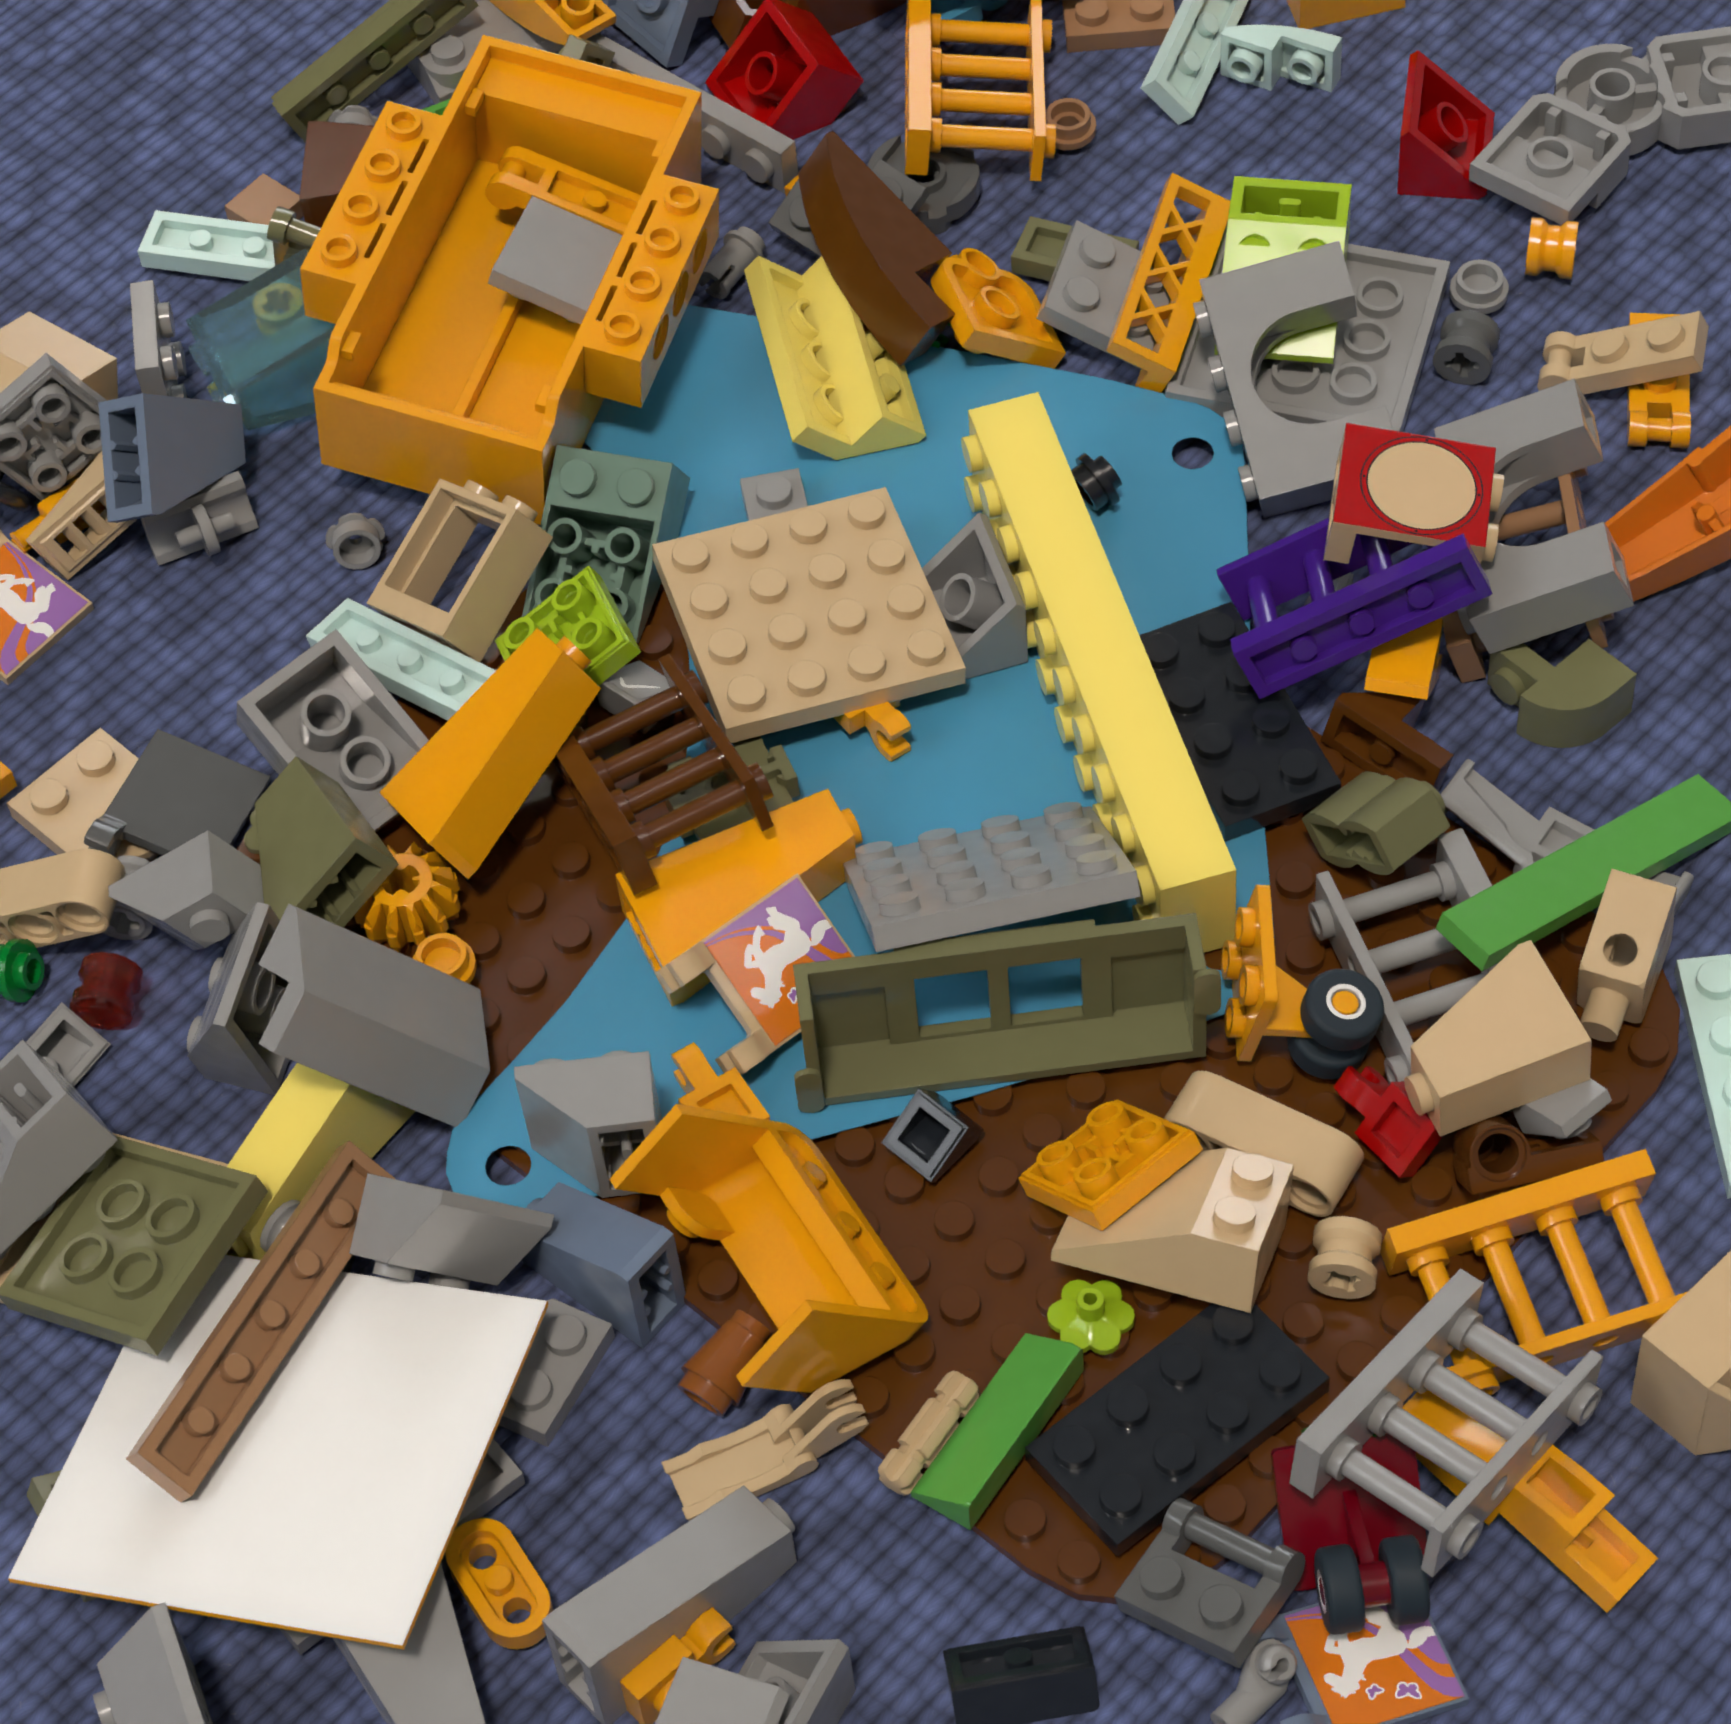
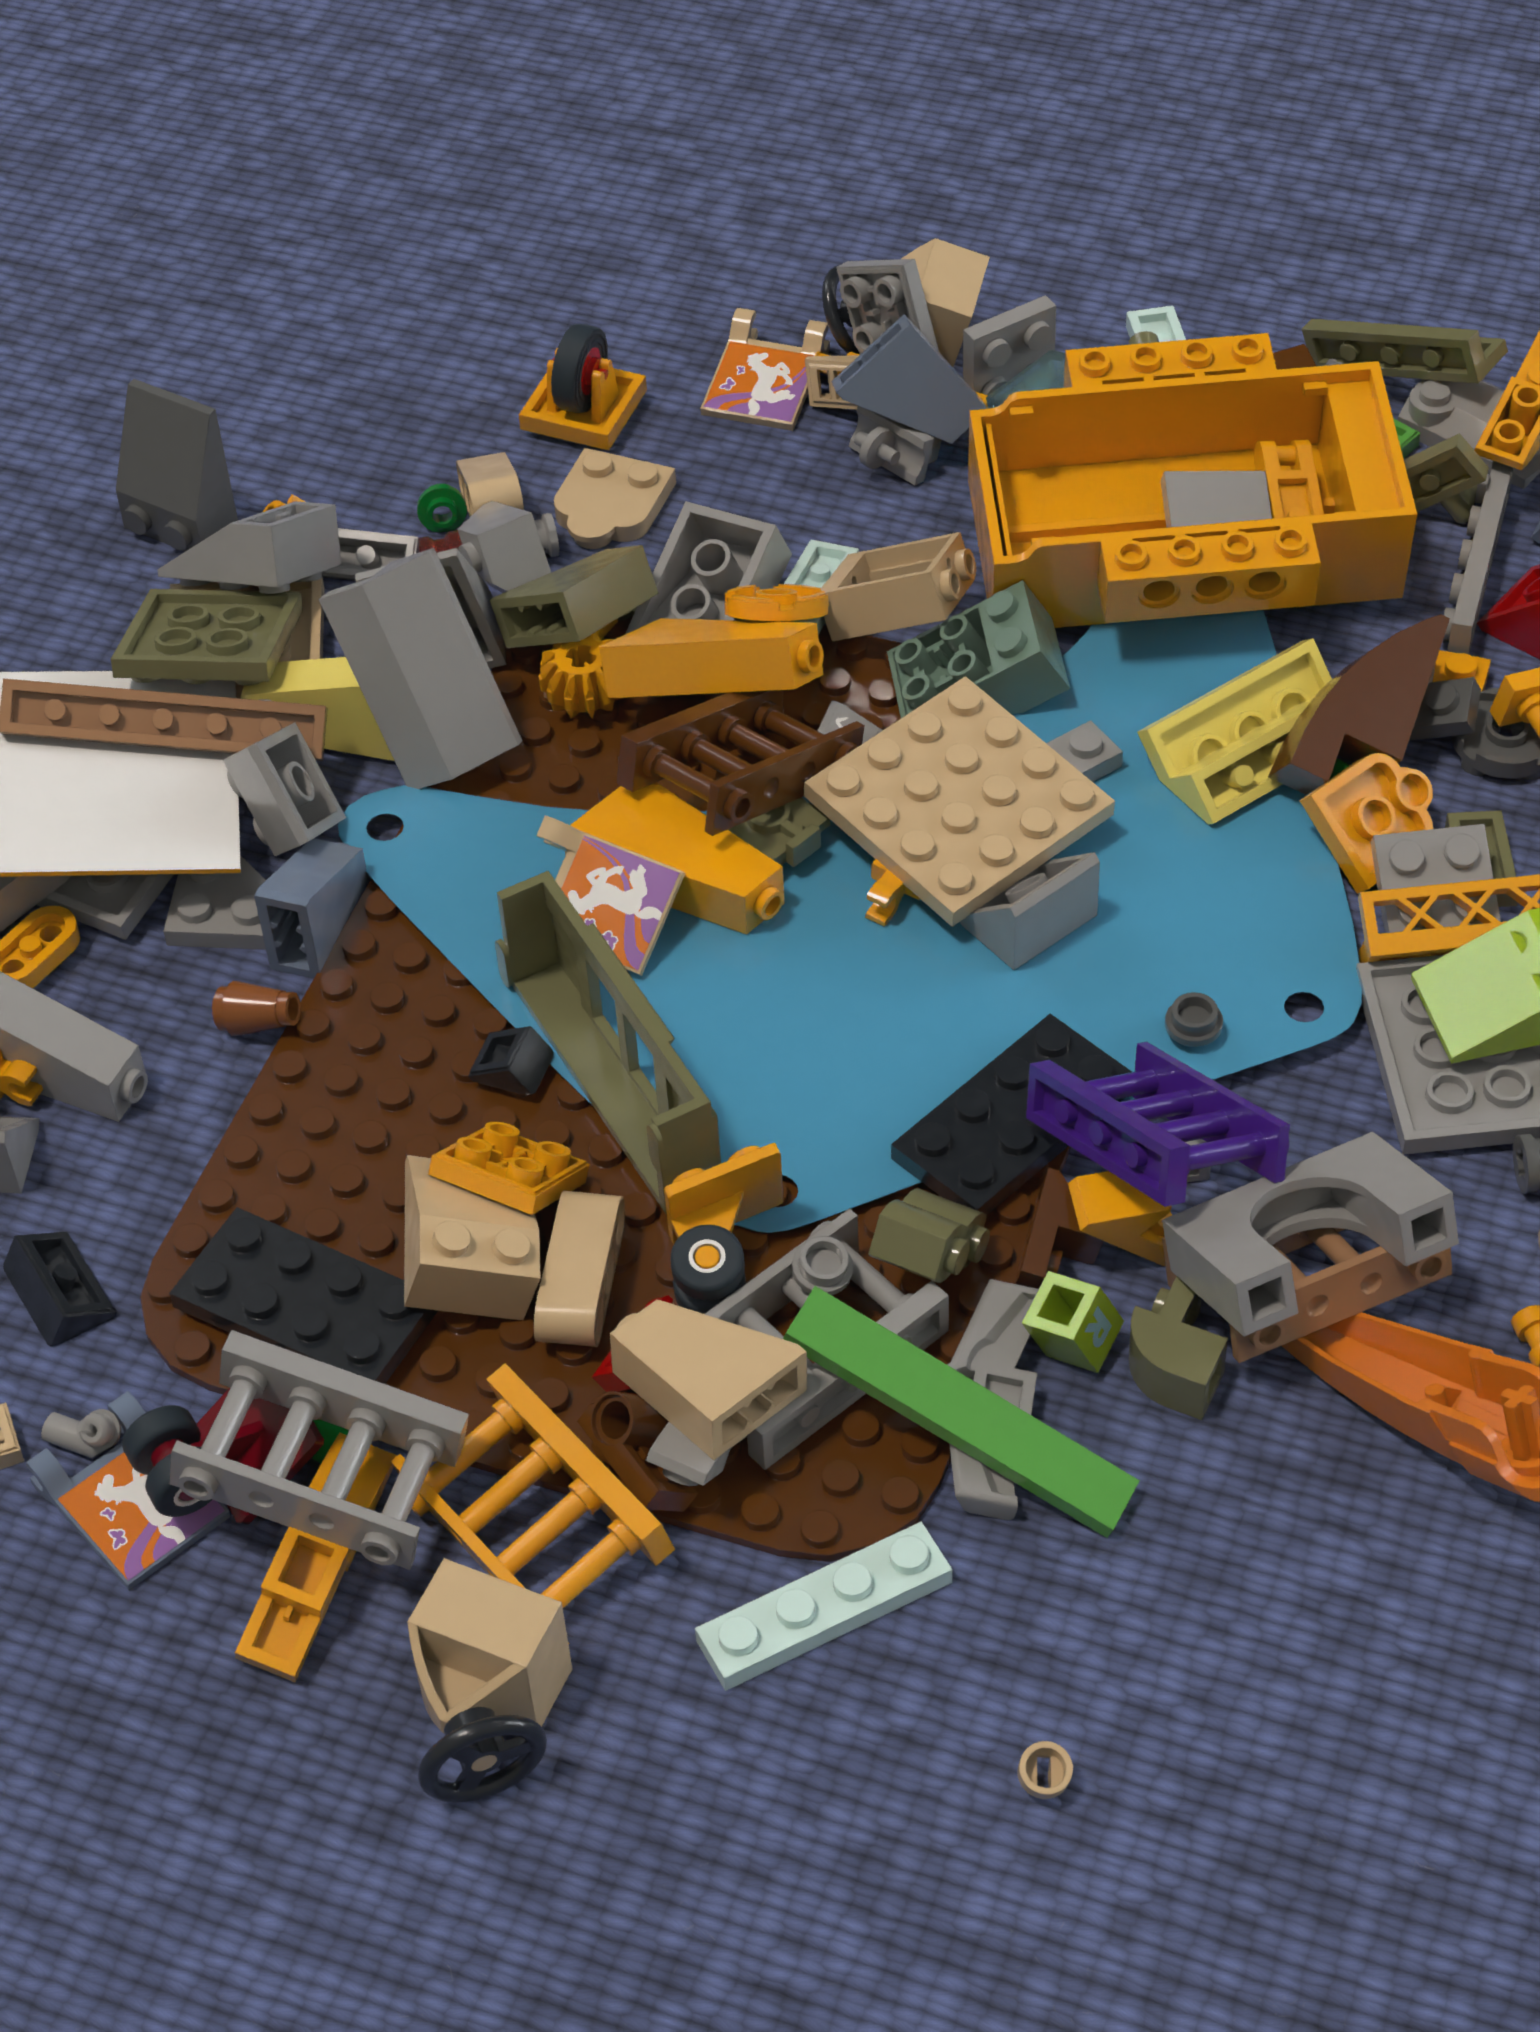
camera: 65 degrees right, 5 degrees down
(177, 795) = (611, 521): dark grey flag -> none
(355, 552) = (919, 527): light grey plate -> none
(448, 955) = (539, 720): light orange plate -> none
(449, 669) = (776, 604): none -> light orange plate
(587, 617) = (862, 672): lime tile -> none
(589, 1113) = (410, 844): light grey slope -> none
(708, 1091) = (470, 919): light orange plate -> none
(728, 264) = (1341, 646): light grey pin -> none
(768, 1450) = (193, 1062): tan arm -> none
(789, 1234) = (405, 988): light orange windscreen -> none
(928, 1432) = (234, 1147): tan axle -> none
(987, 876) = (724, 982): light grey plate -> none
(999, 1428) = (260, 1190): bright green slope -> none
(1091, 1316) = (379, 1219): lime plant -> none
(1096, 481) = (1214, 941): black plate -> none
(1098, 669) = (984, 994): light yellow brick -> none
(1182, 535) = (1194, 1020): none -> dark grey plate
(1202, 1603) = (136, 1354): dark grey plate -> none
(1248, 315) = (1422, 968): light grey arch -> none
(1344, 1257) = (486, 1354): tan wheel -> none
(1382, 917) = (822, 1264): none -> light grey plate
(1412, 491) = (1240, 1117): panel -> none
(1511, 751) = (1073, 1321): none -> lime brick
(1624, 953) = (872, 1457): tan torso -> none

